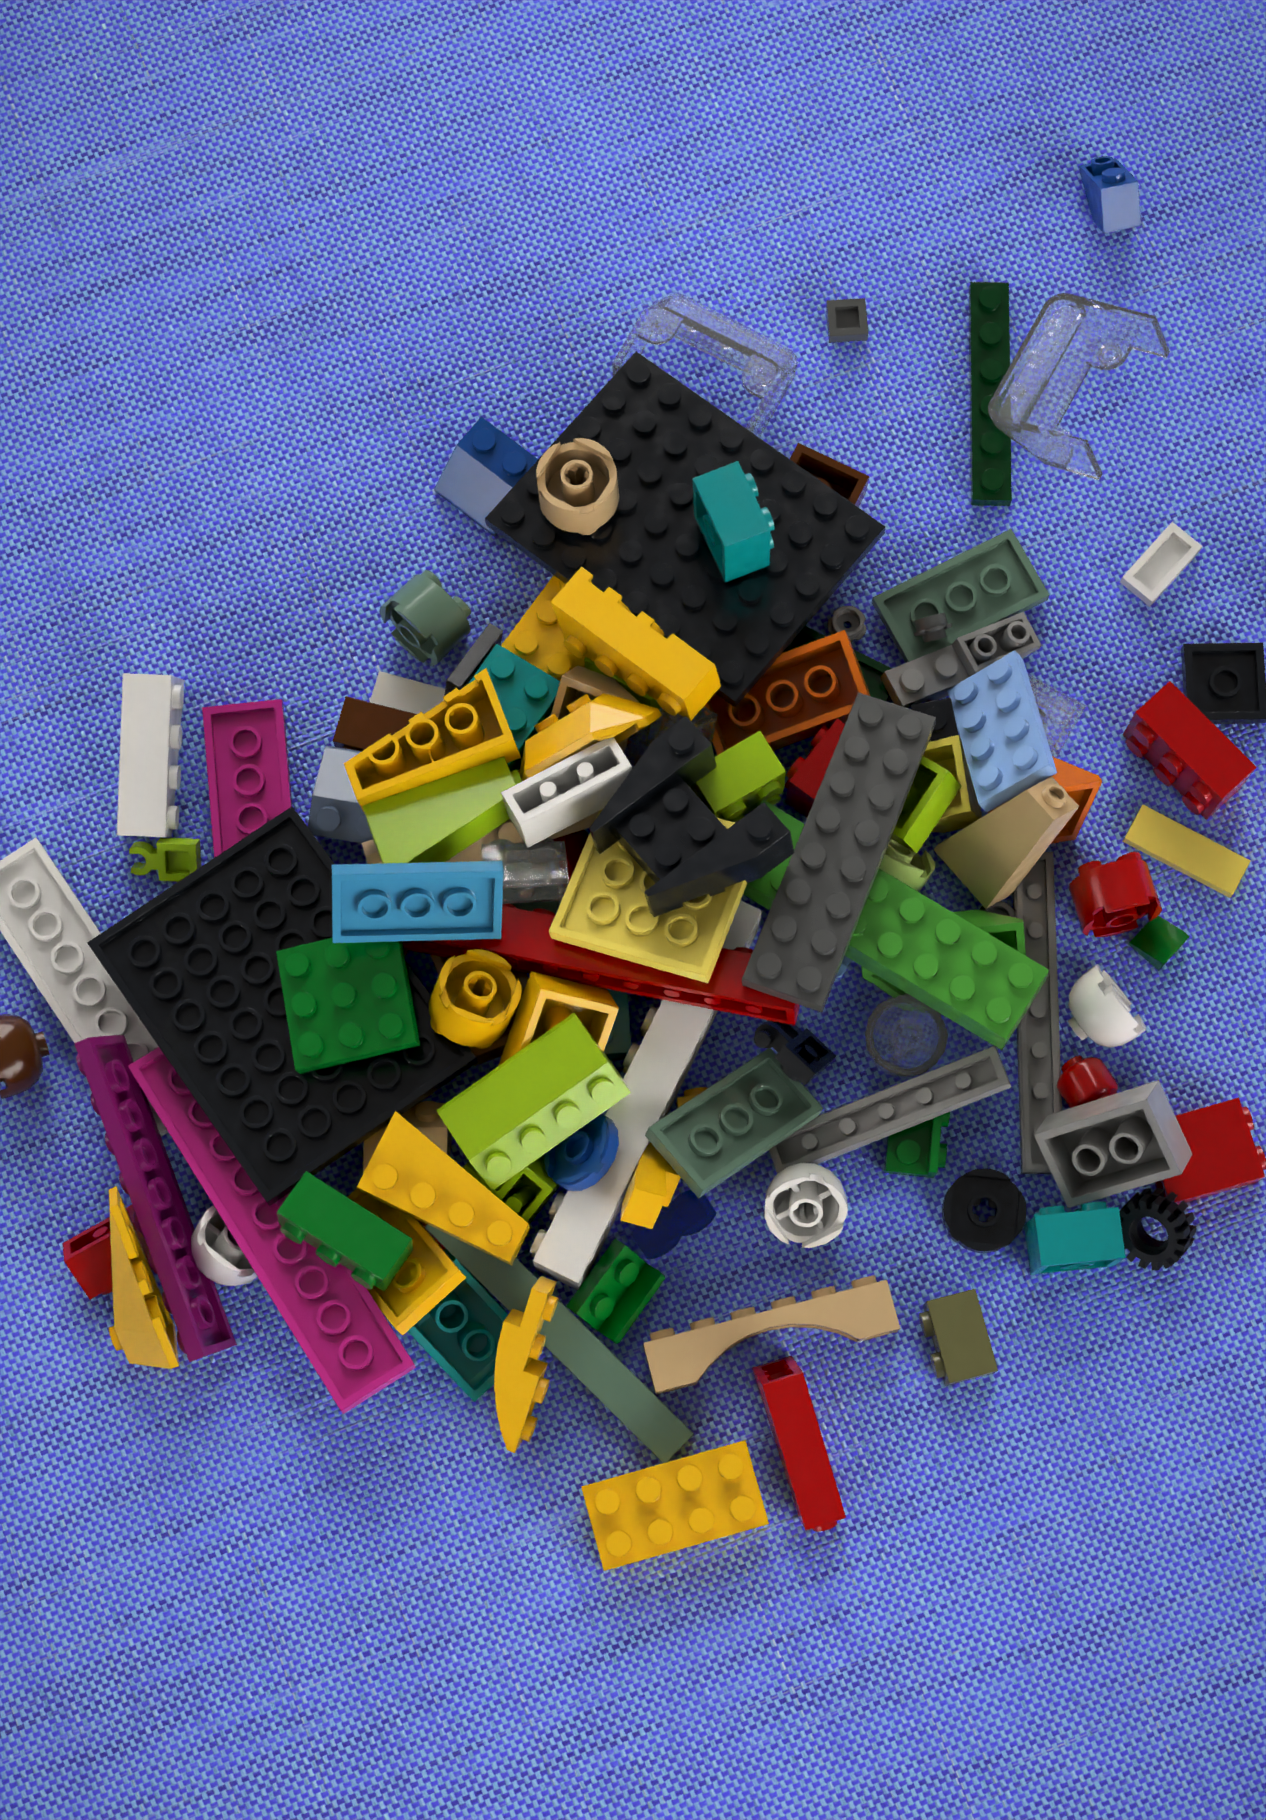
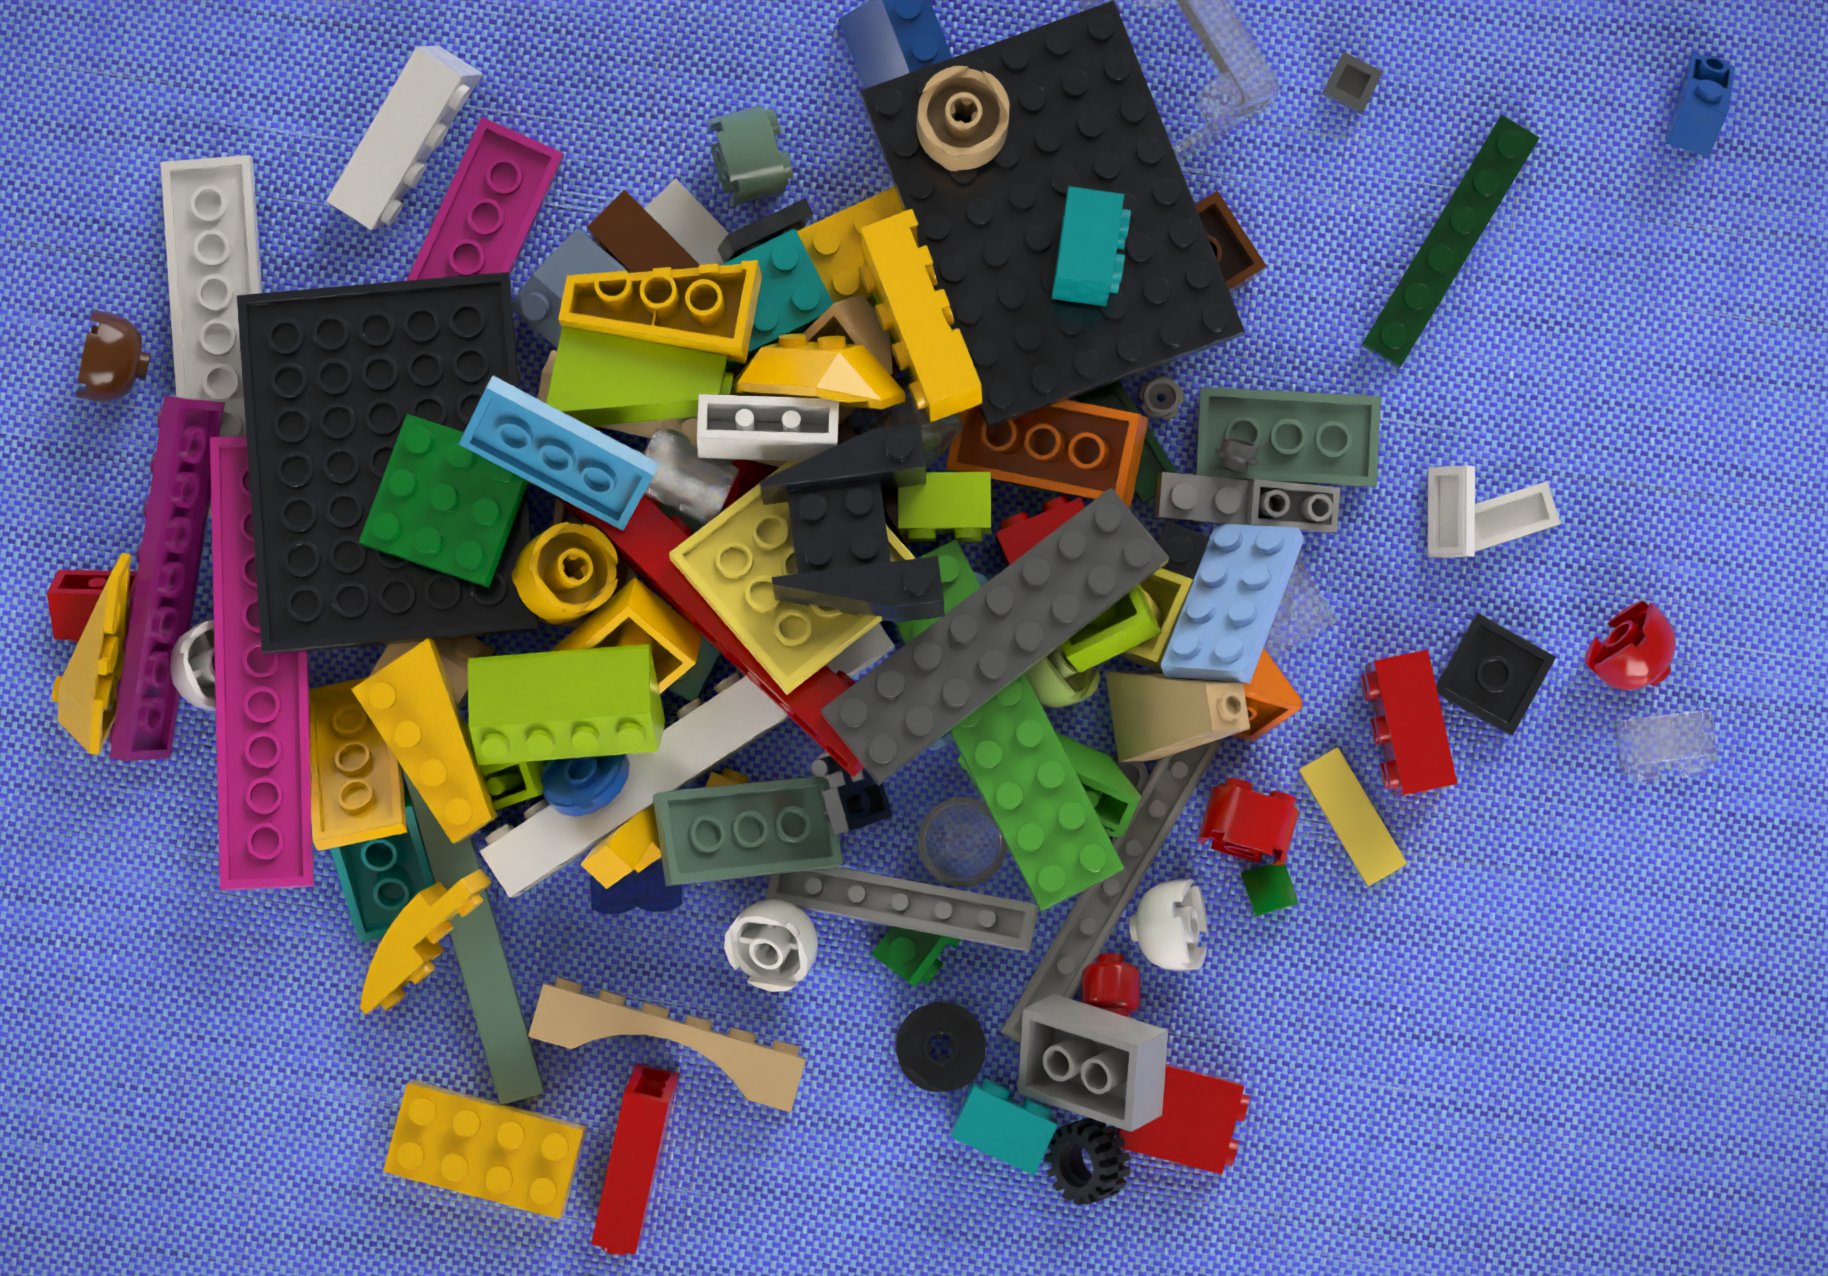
camera: 35 degrees right, 10 degrees up
(172, 858) = (369, 251): lime plate -> none
(344, 1232) = (316, 723): green brick -> none
(615, 1291) = (548, 920): green bracket -> none
(958, 1337) = (842, 1152): olive brick -> none
(1051, 366) = (1520, 256): clear windscreen -> none
(1116, 583) = (1451, 511): none -> white tile

